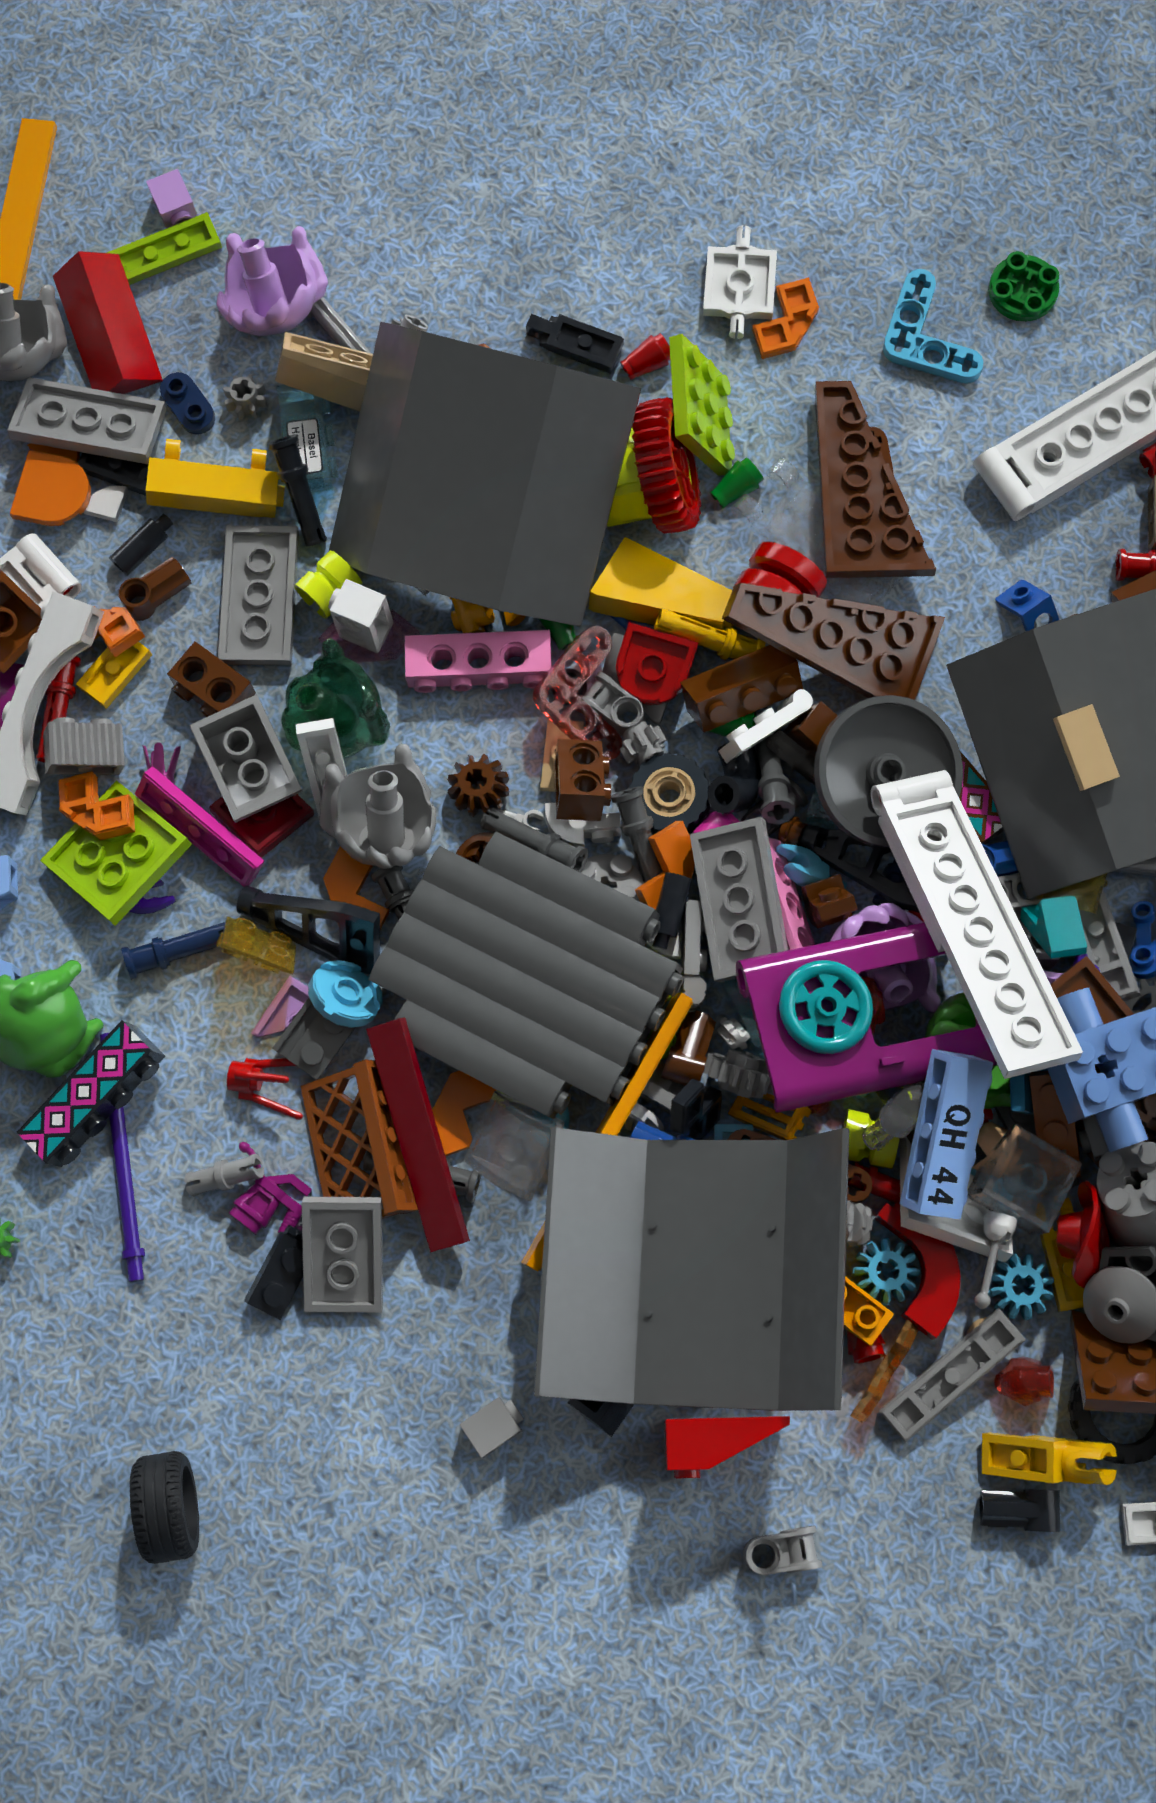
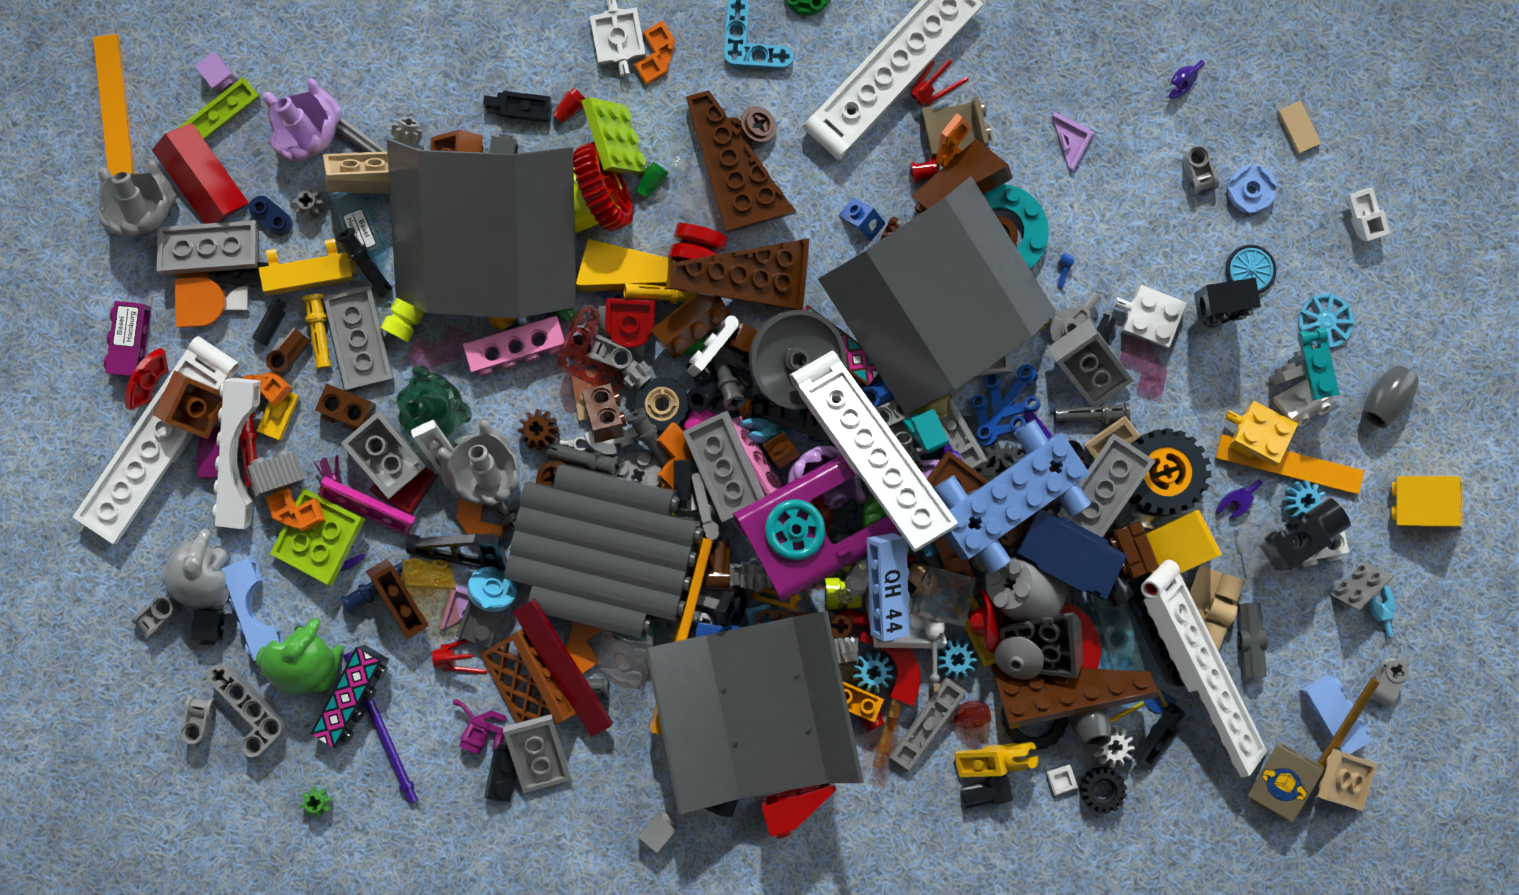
camera: 20 degrees left, 10 degrees up
(203, 968) = (397, 598): none -> reddish brown brick
(206, 554) = (316, 319): none -> yellow pin
(224, 1175) = (449, 723): light grey pin -> none
(361, 615) = (430, 339): white brick -> none
(733, 1033) = (742, 548): white piece -> none
(785, 1551) = (853, 856): light grey piece -> none
(911, 434) = (758, 115): none -> gear
(1086, 747) = (917, 319): tan tile -> none

